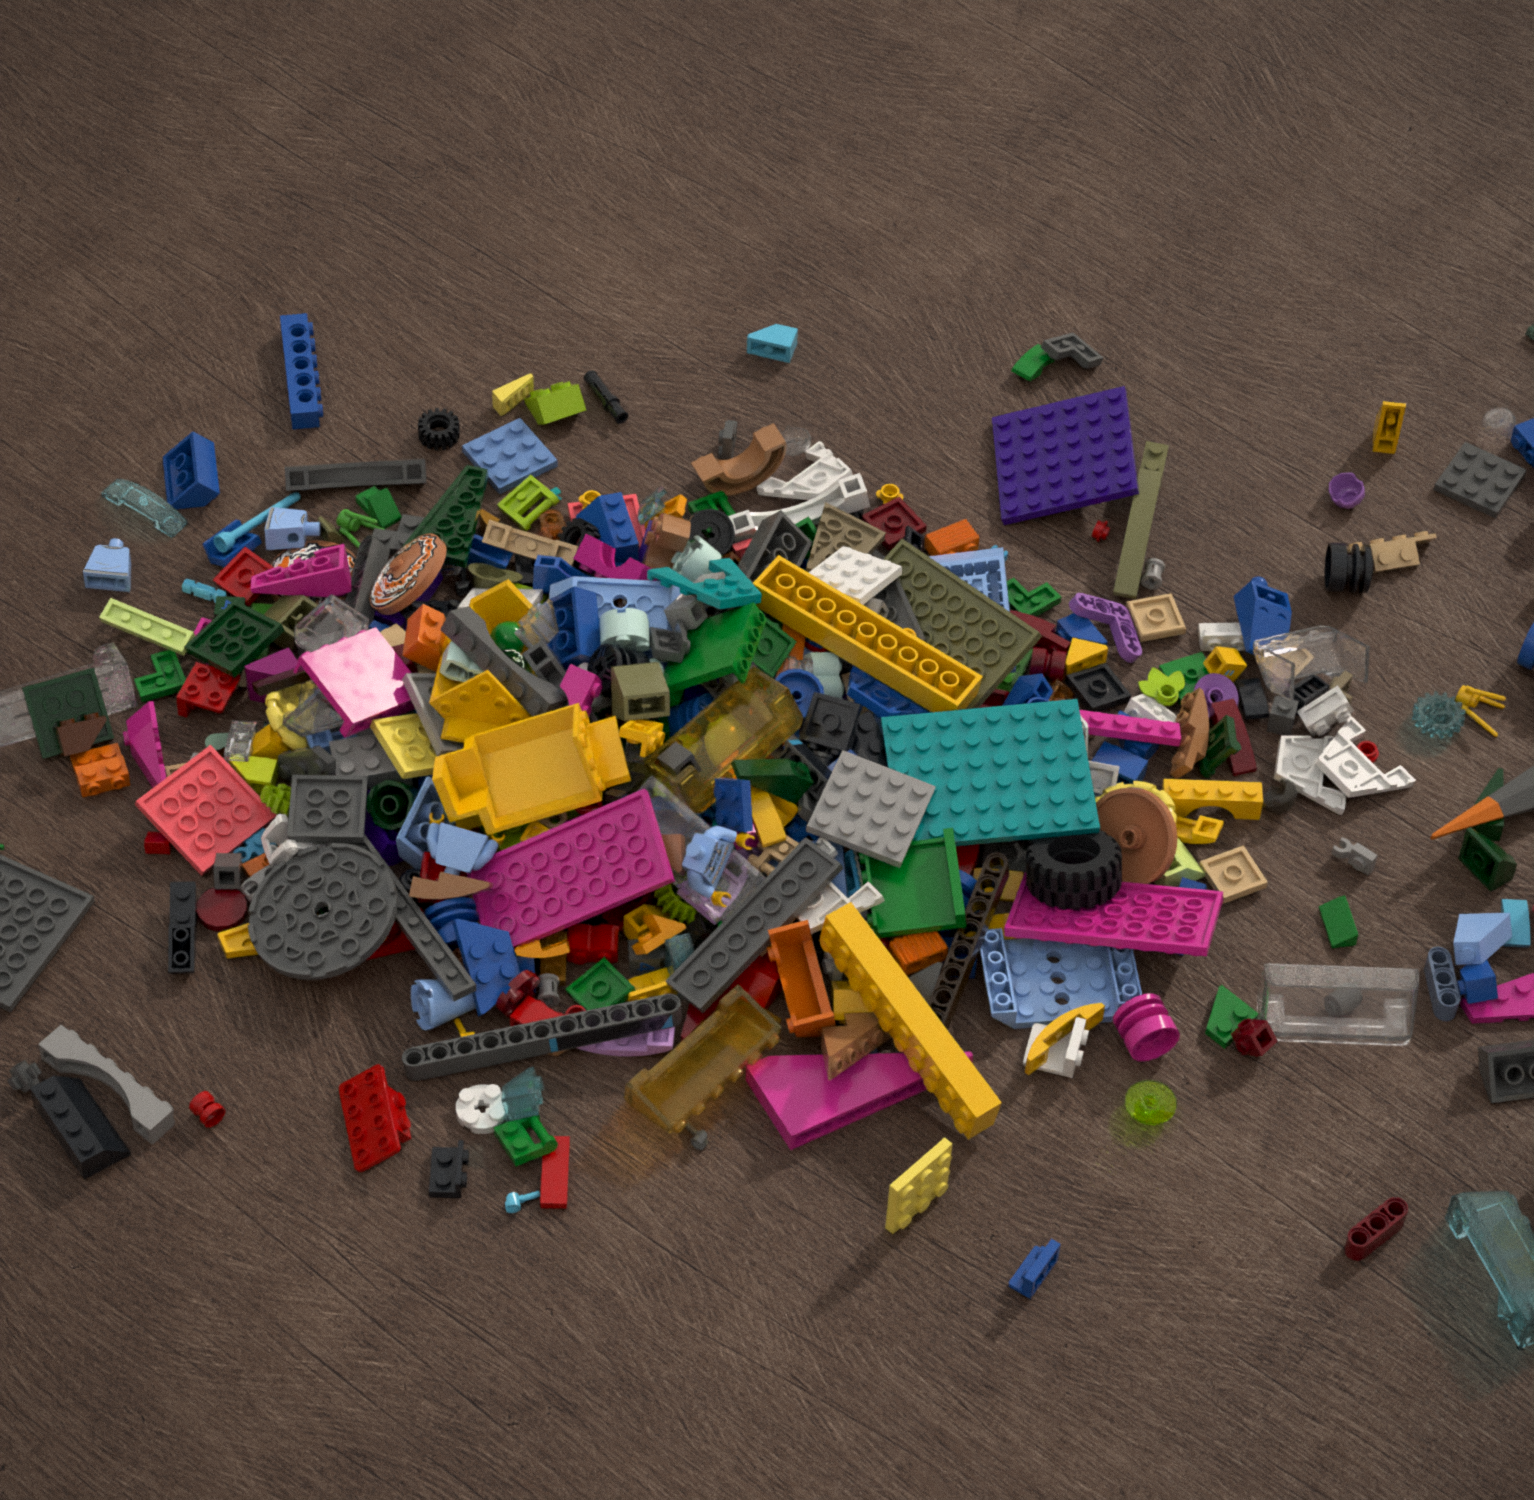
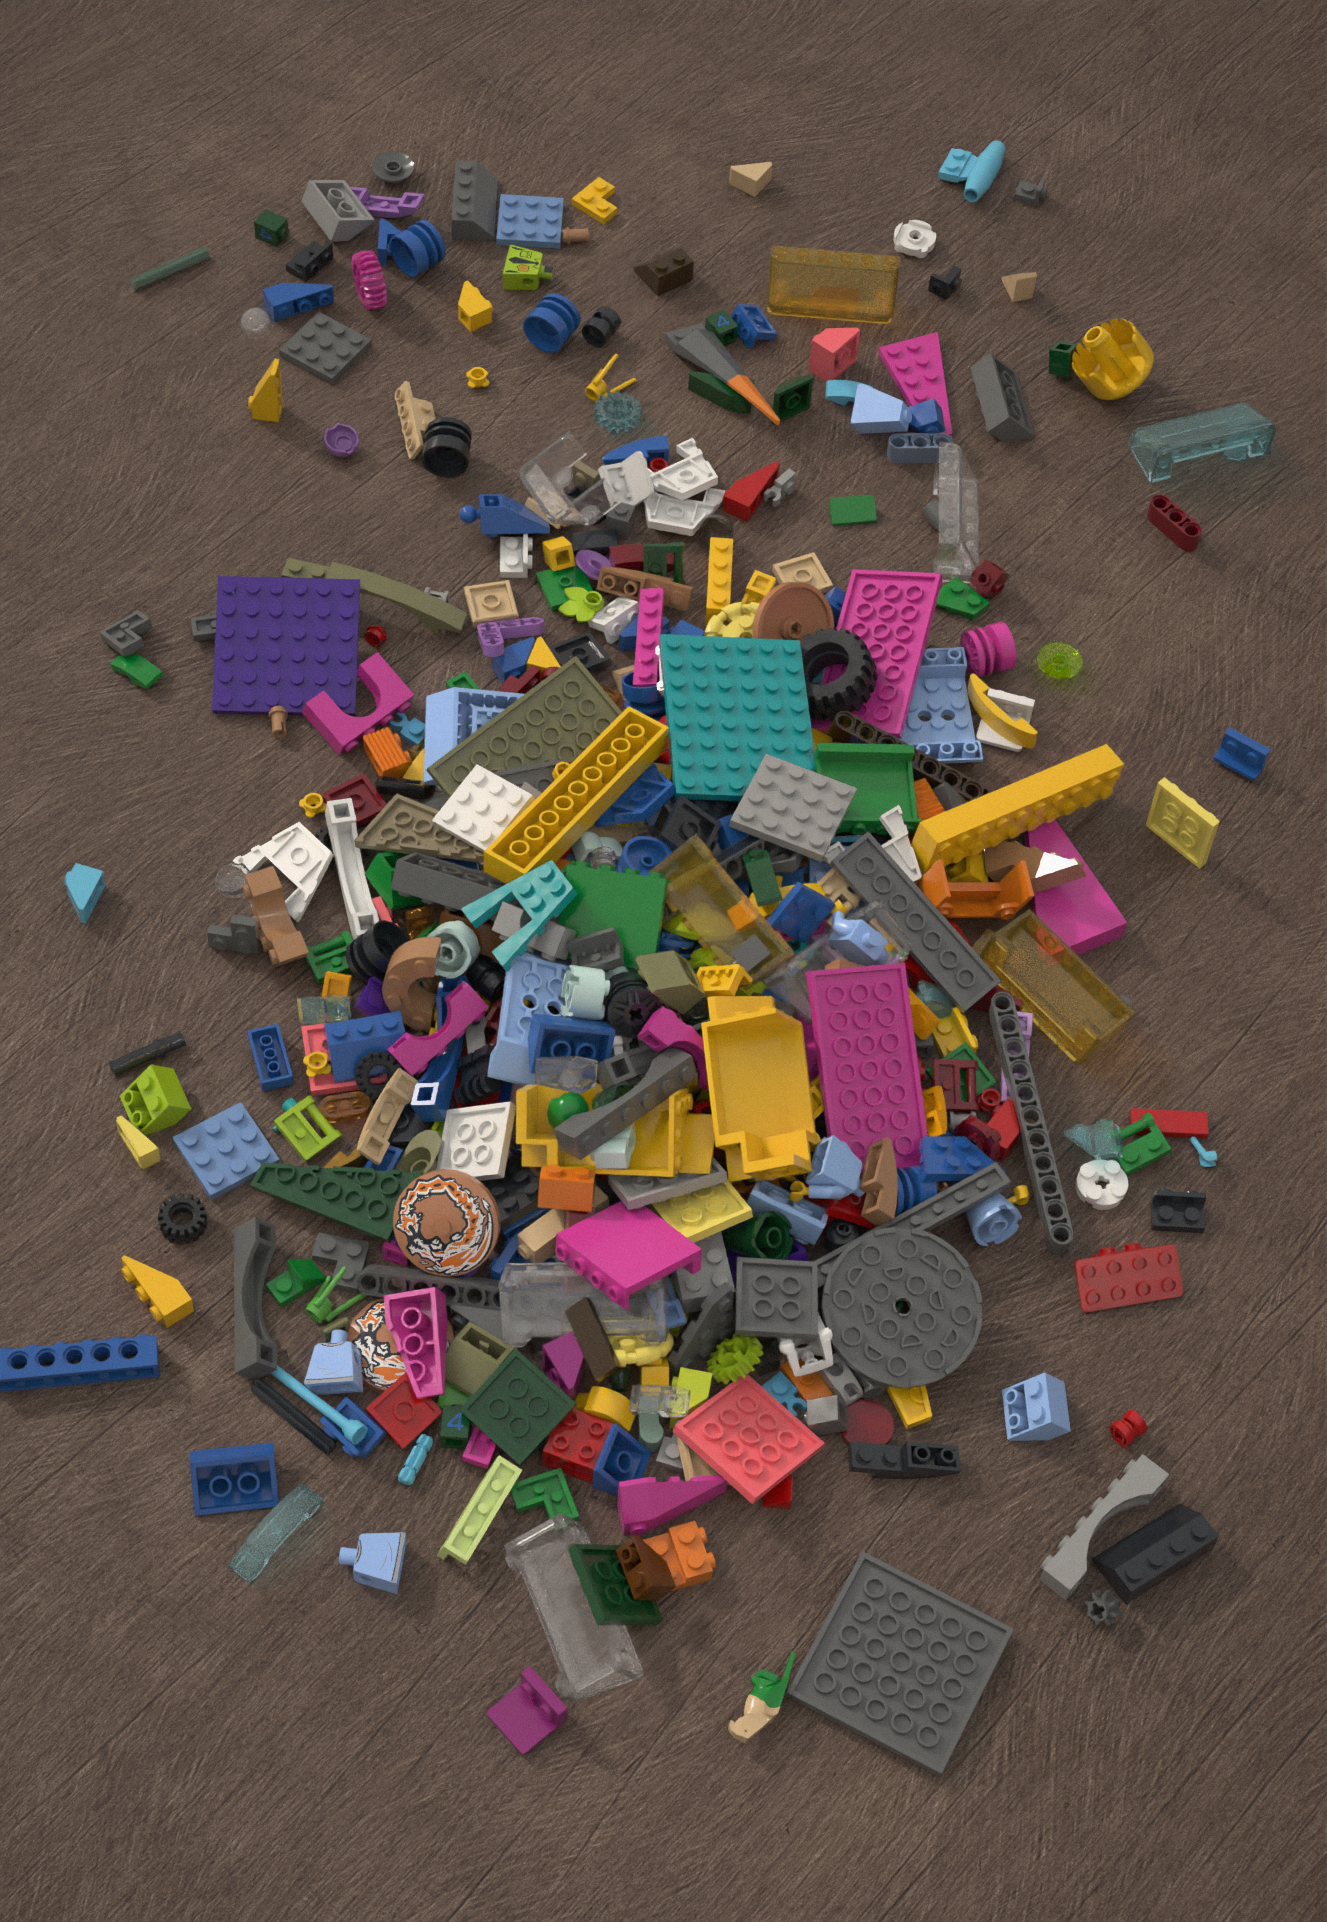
camera: 90 degrees left, 5 degrees up
(189, 722) = (619, 1461): none -> blue slope
(229, 1036) = (1036, 1409): none -> light blue slope
(240, 707) = (606, 1405): none -> yellow brick
(255, 505) = (293, 1416): none -> black axle
(365, 418) = (162, 1292): none -> yellow slope
(582, 970) = (947, 1074): none -> dark red plate
(604, 476) = (270, 1057): none -> blue piece
(984, 464) = (278, 717): none -> medium nougat pin
(1019, 540) = (345, 731): none -> dark pink arch
(1339, 822) = (749, 492): none -> red slope
(1378, 731) = (651, 448): none -> blue slope
(1464, 600) = (477, 377): none -> yellow plate

